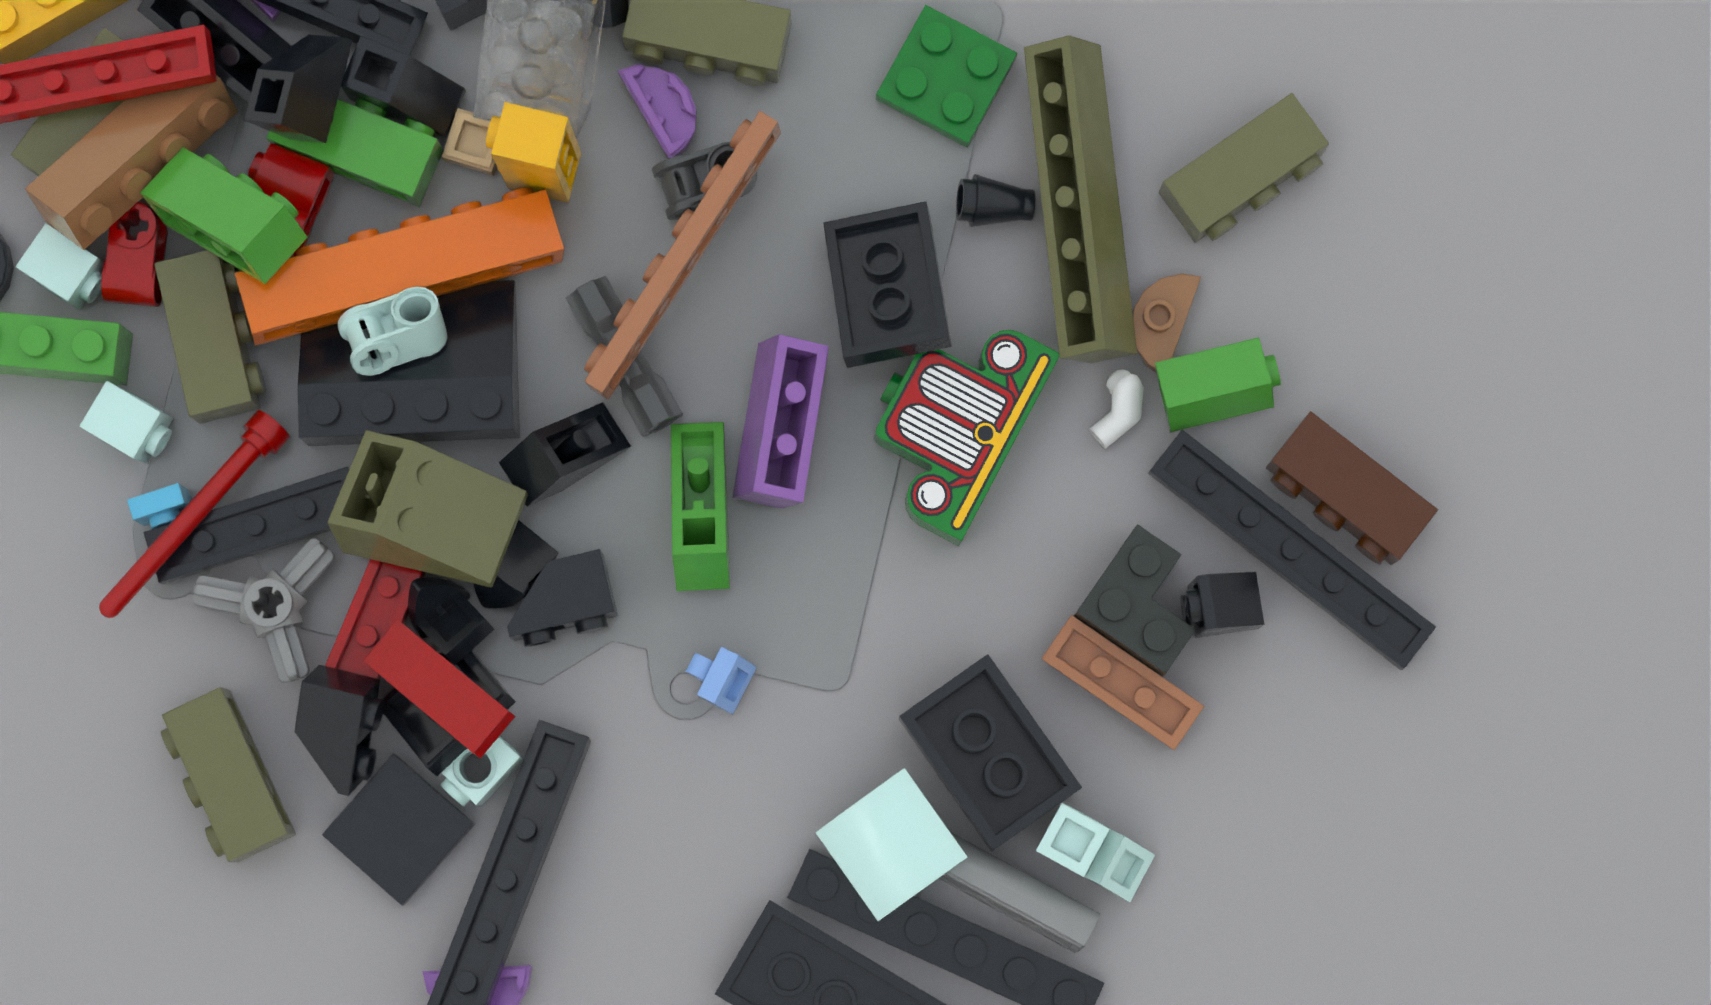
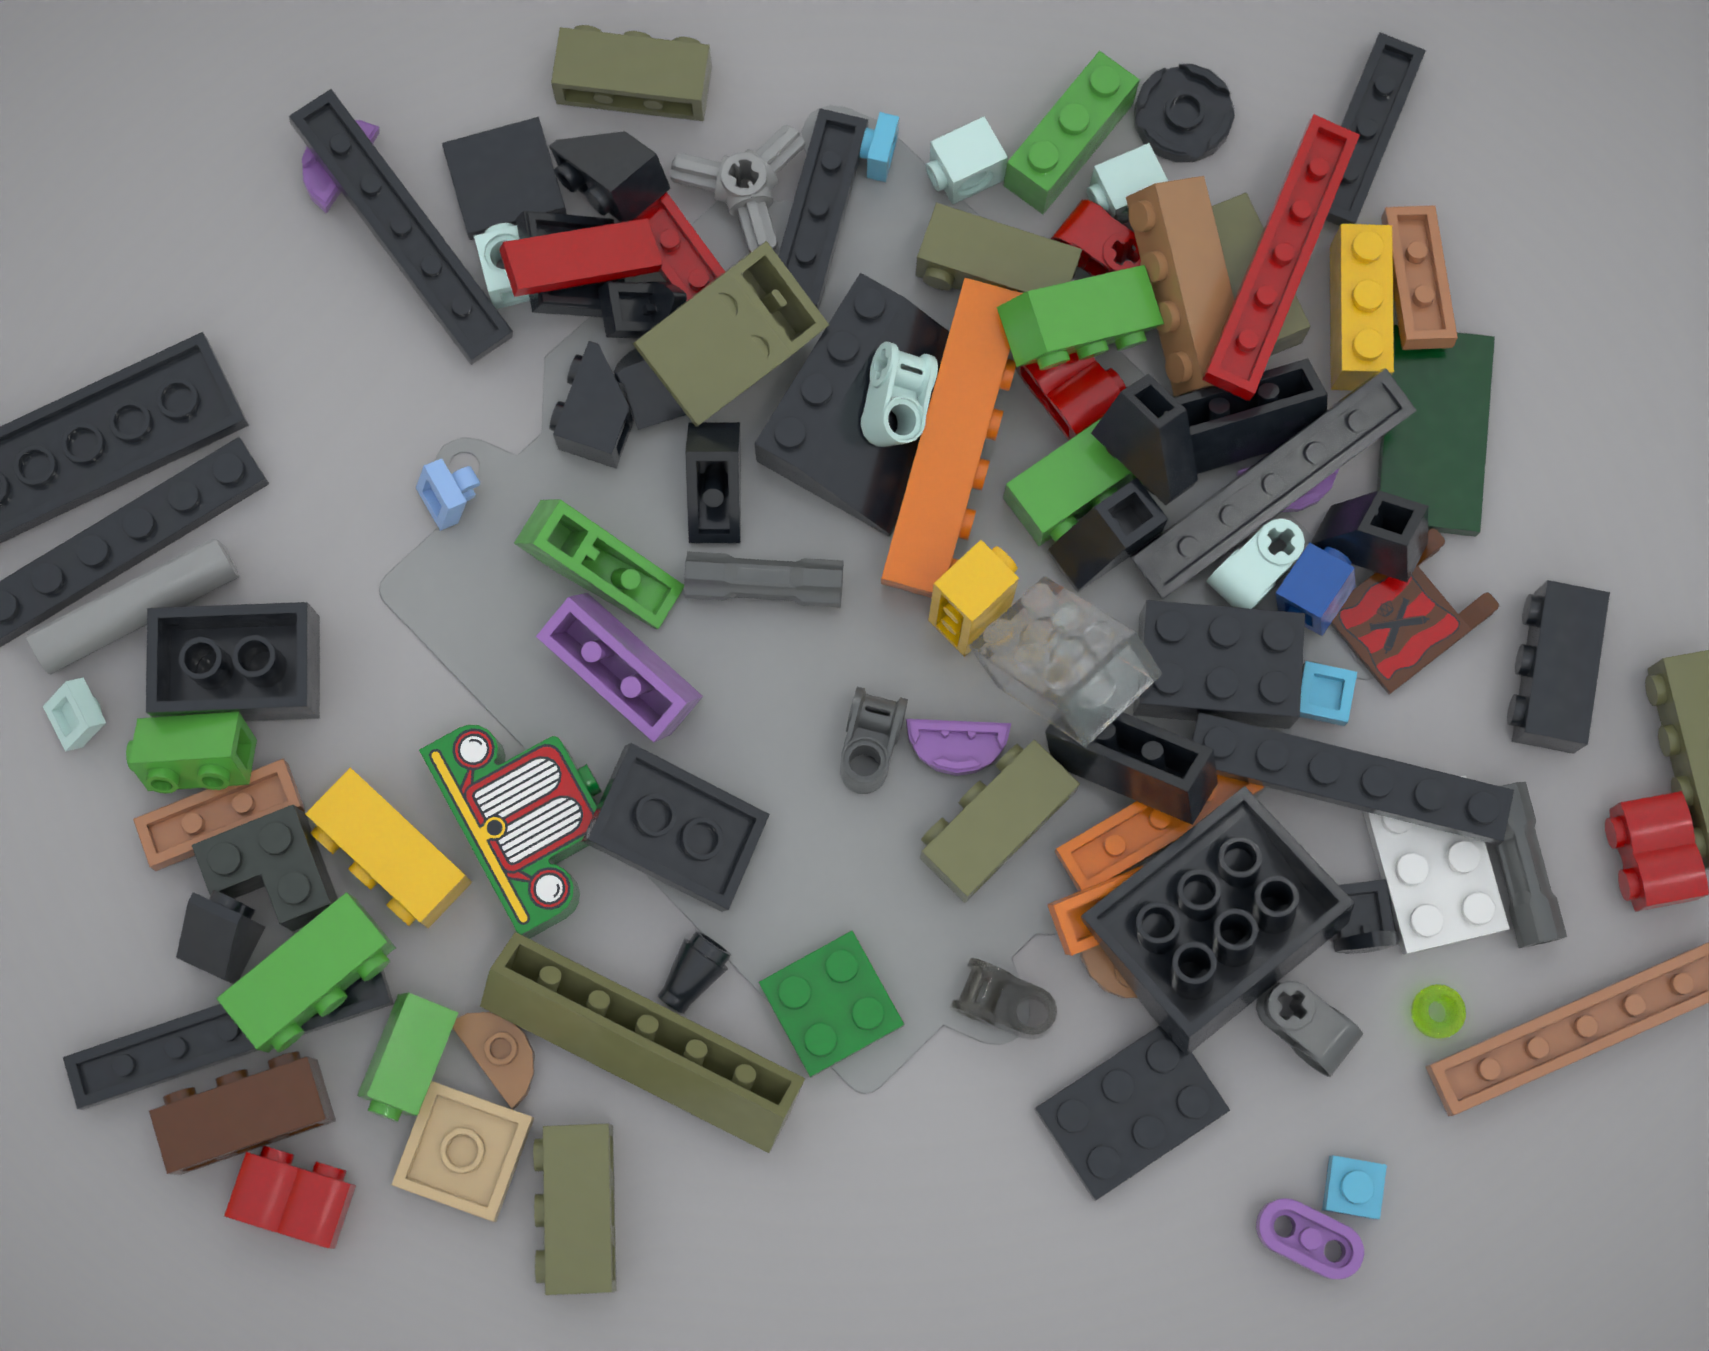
camera: 120 degrees right, 5 degrees down
(261, 437) = (886, 253): red piece -> none
(468, 143) = (1032, 566): tan tile -> none
(669, 272) = (819, 685): nougat plate -> none
(891, 844) = (214, 537): light aqua slope -> none
(1060, 518) = (386, 850): none -> yellow brick
(1072, 839) = (115, 684): light aqua brick -> none
(1088, 735) = (192, 751): none -> bright green brick
(1125, 409) = (444, 969): white arm -> none
(1206, 502) = (307, 975): none -> bright green brick
(1260, 290) = (463, 1151): none -> tan plate
(1389, 404) = (291, 1199): none -> red brick

